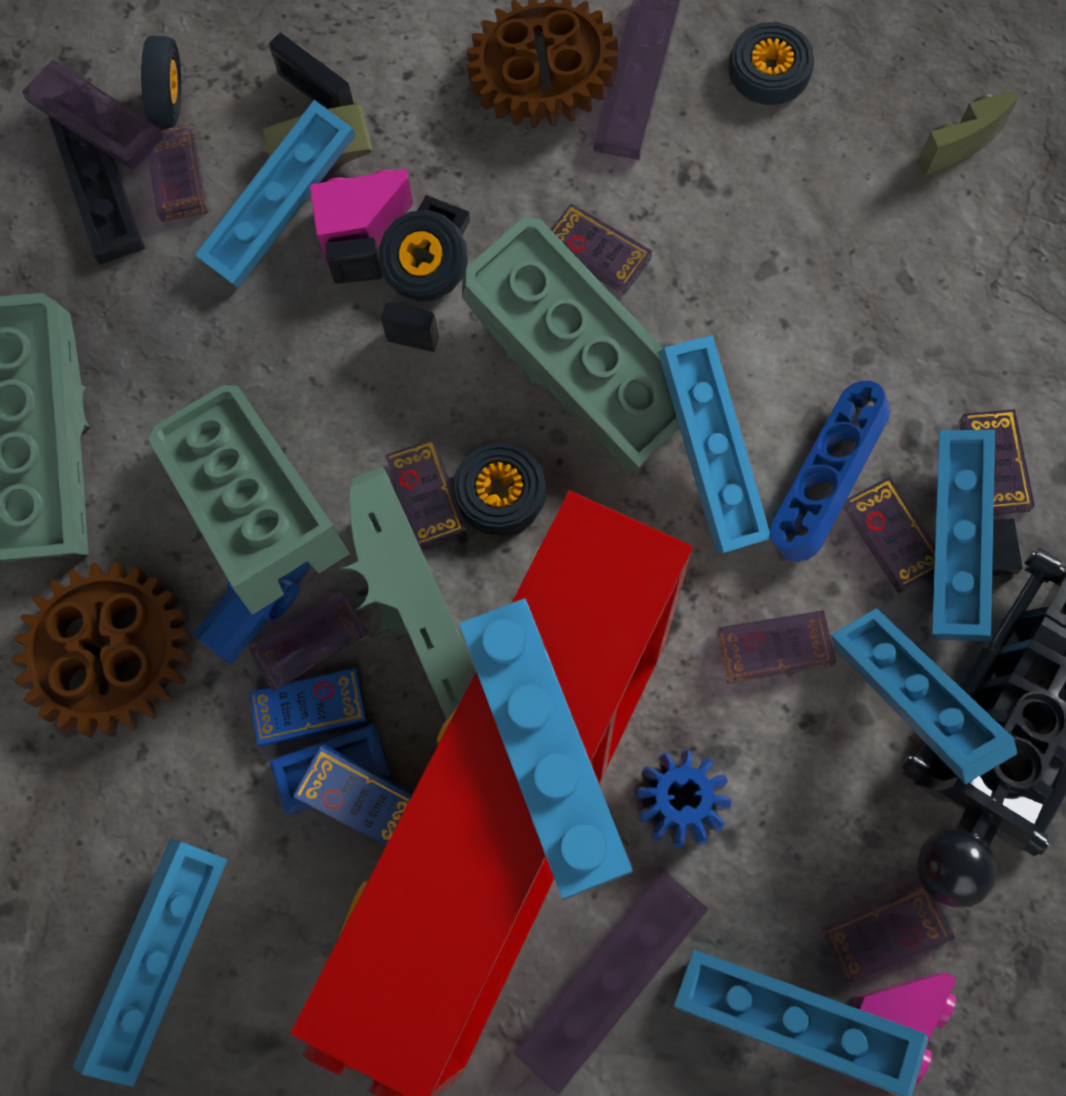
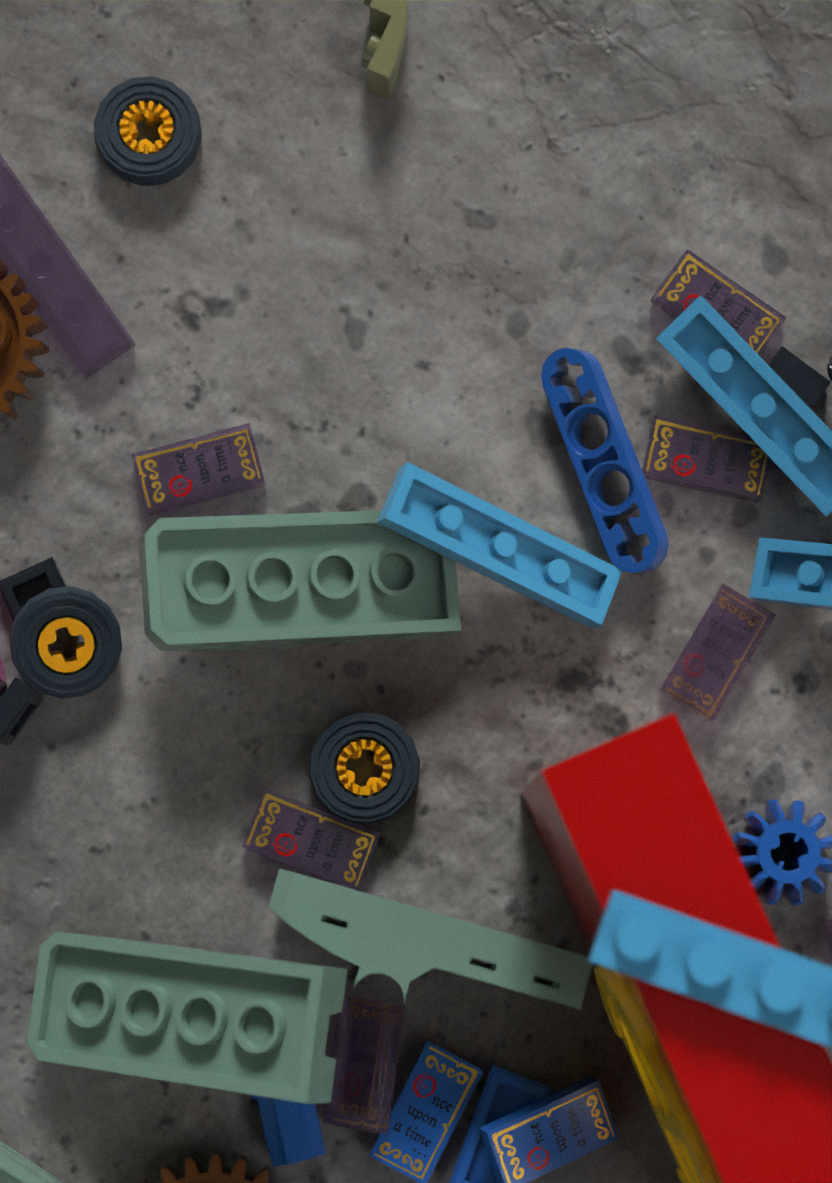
camera: 55 degrees left, 10 degrees up
(410, 327) = (131, 716): black tile -> none

